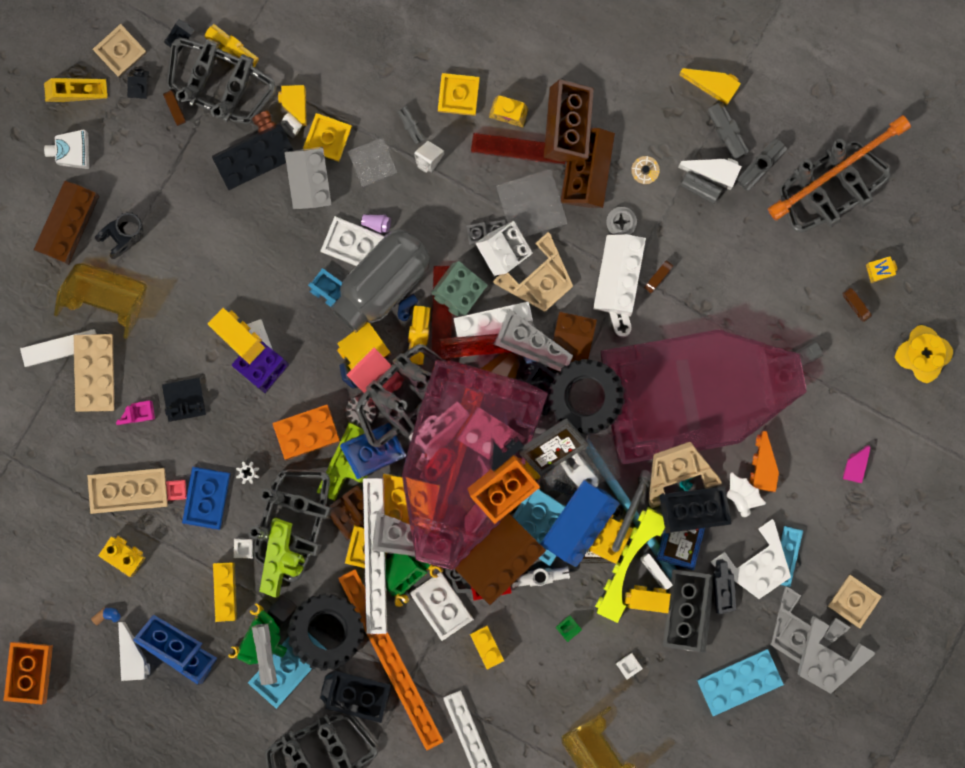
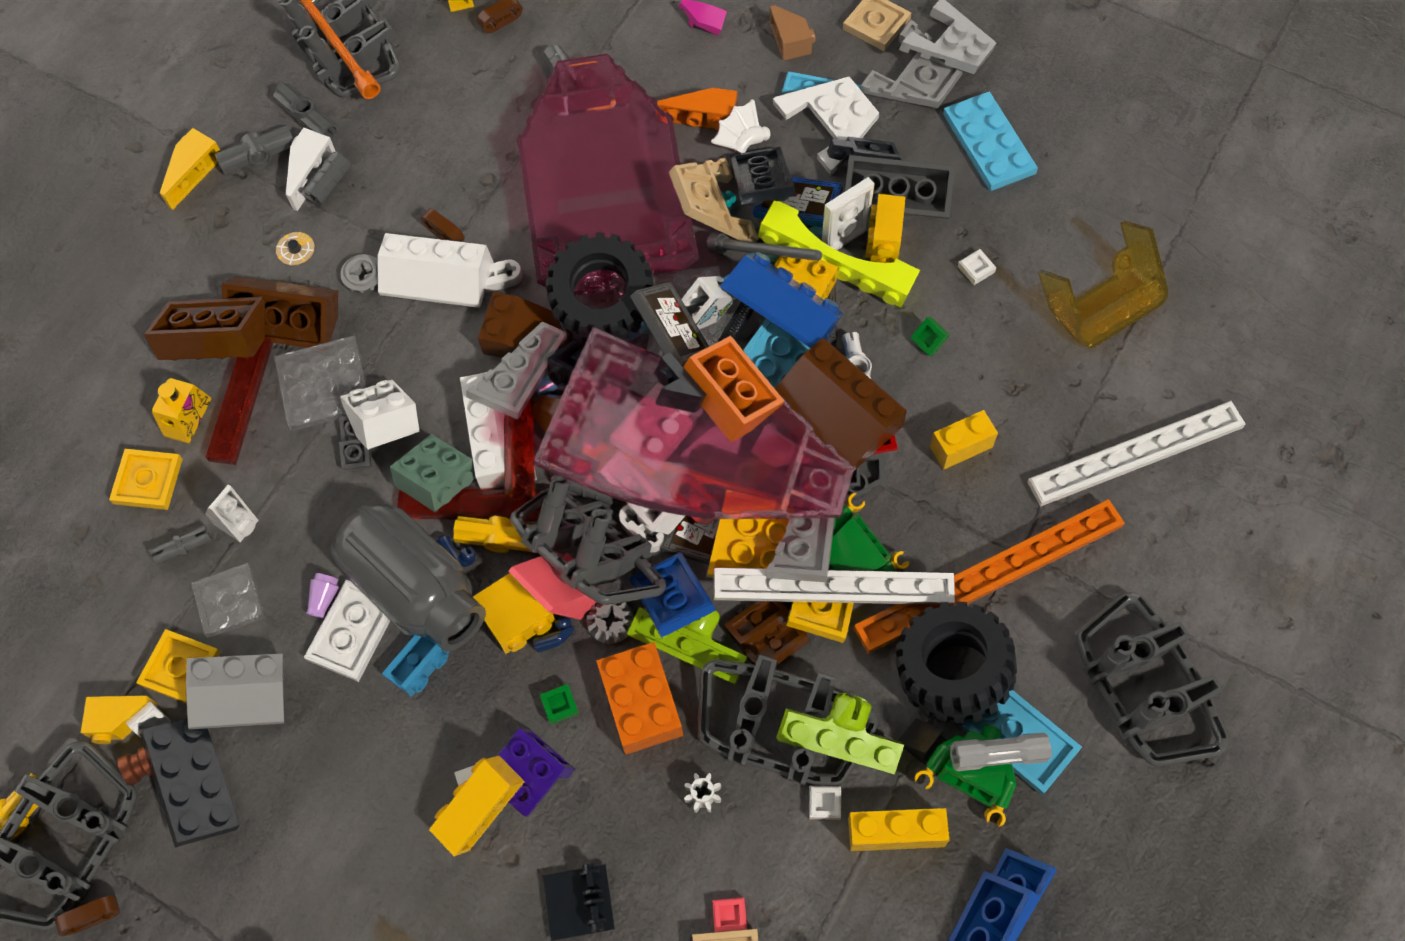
camera: 90 degrees left, 20 degrees down
(206, 498) = (743, 865): blue tile -> none
(303, 381) = (559, 704): none -> green plate
(355, 695) = (1051, 626): black slope -> none
(441, 606) = (906, 506): white tile -> none
(545, 284) = (437, 365): tan wing -> none
(837, 533) = (791, 33): none -> medium nougat slope

